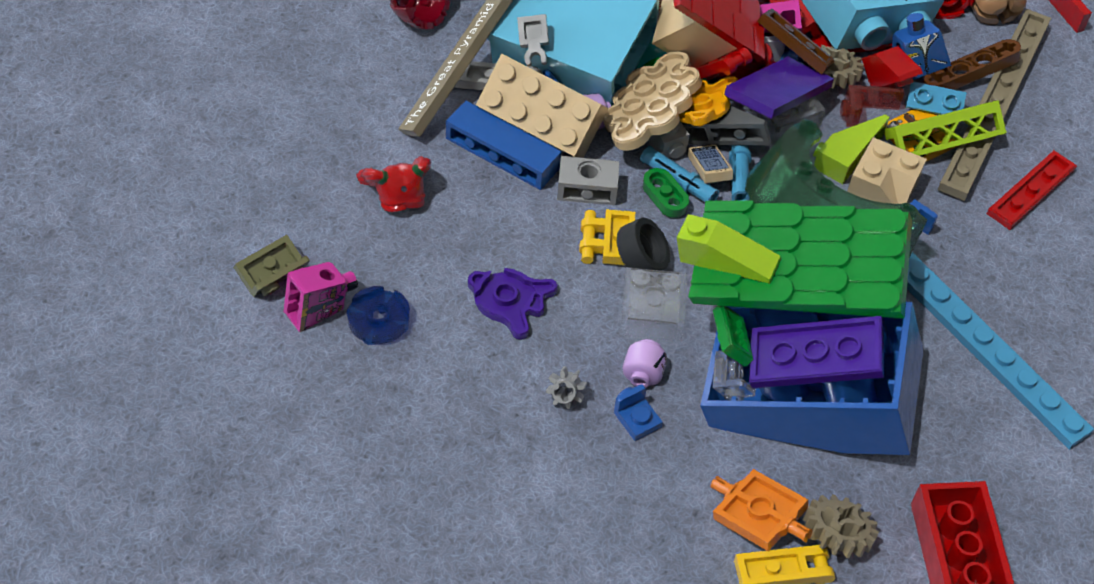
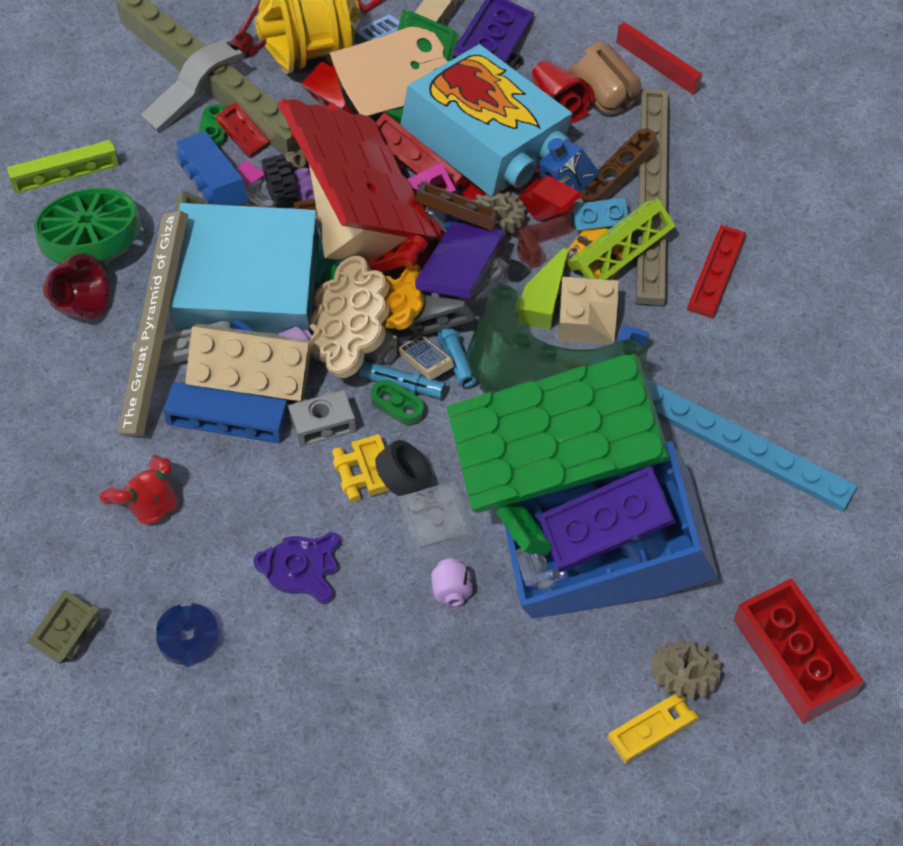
camera: 20 degrees left, 5 degrees up
(316, 293) = (121, 638): dark pink torso -> none
(533, 34) = (214, 294): light grey plate -> none
(560, 393) = (398, 630): light grey gear -> none
(636, 412) = (464, 633): blue bracket -> none
(720, 248) = (488, 453): lime slope -> none
(760, 509) = (612, 682): orange plate -> none
(831, 121) = (516, 270): none -> black hinge

